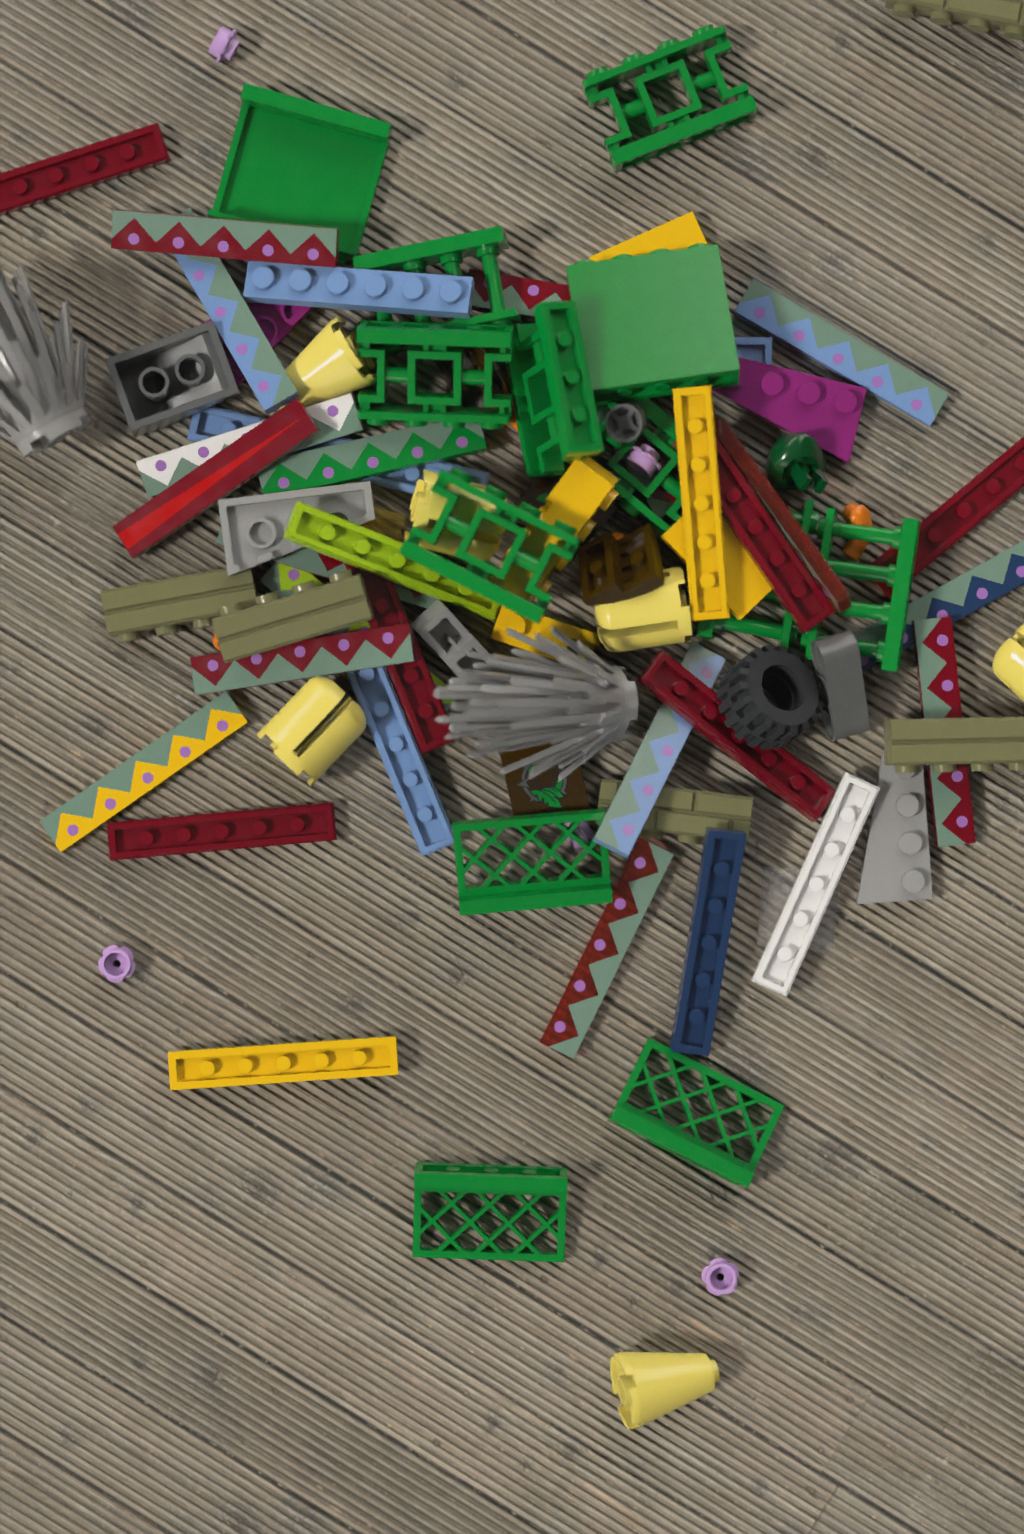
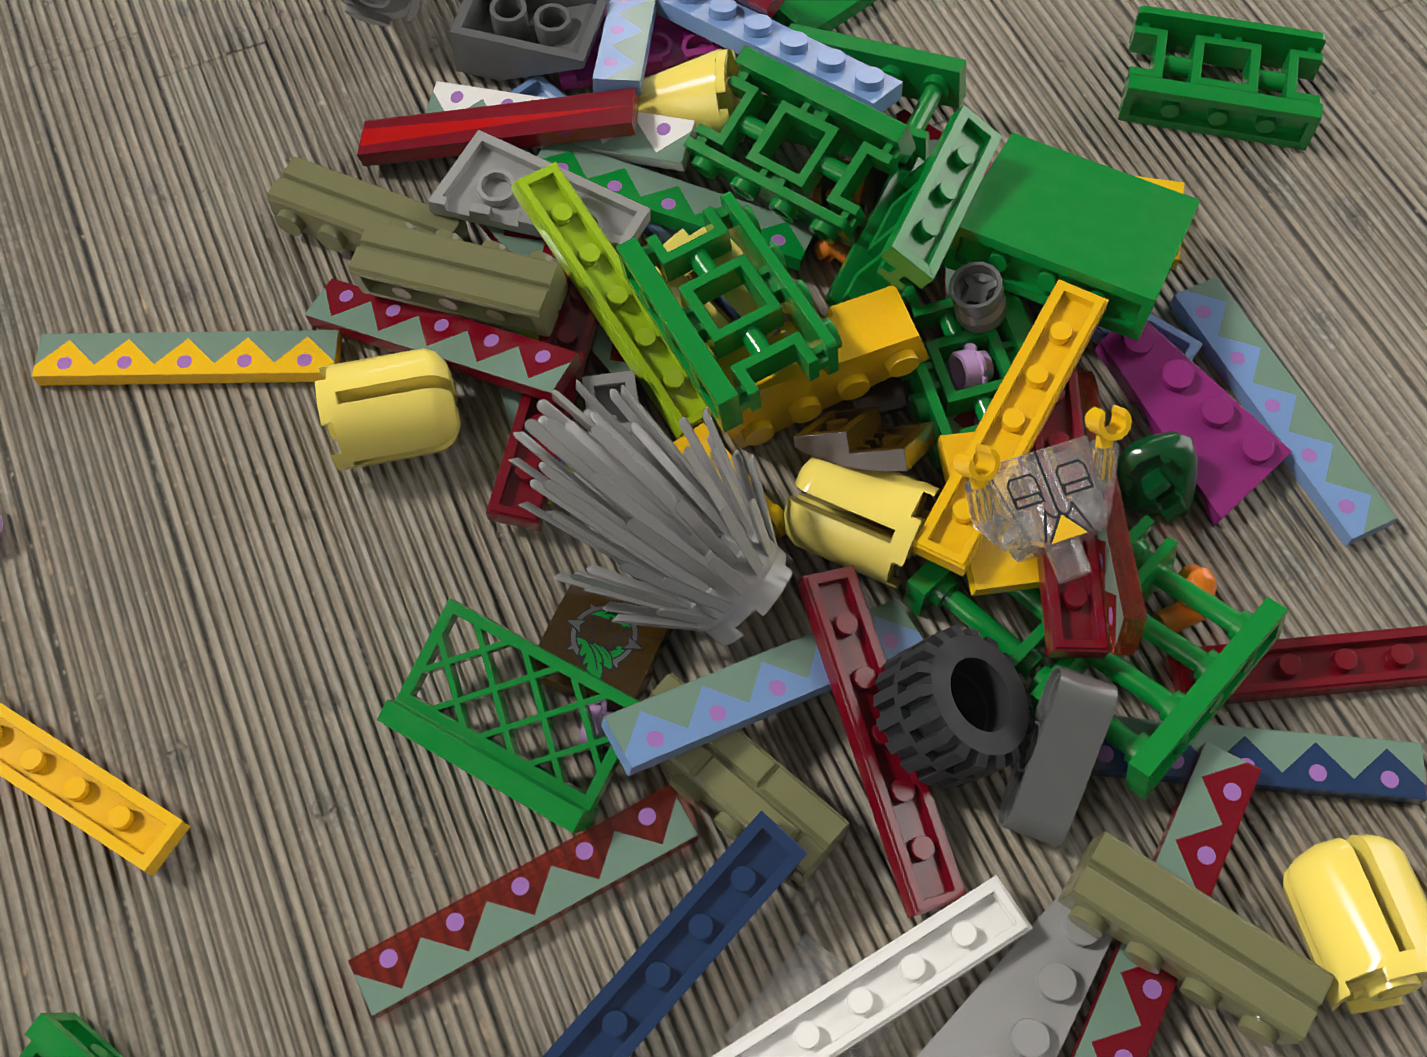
camera: 30 degrees right, 25 degrees down
(221, 831) = (213, 468): dark red tile -> none
(402, 759) = (460, 516): medium blue tile -> none
(754, 551) = (1048, 496): none -> clear torso

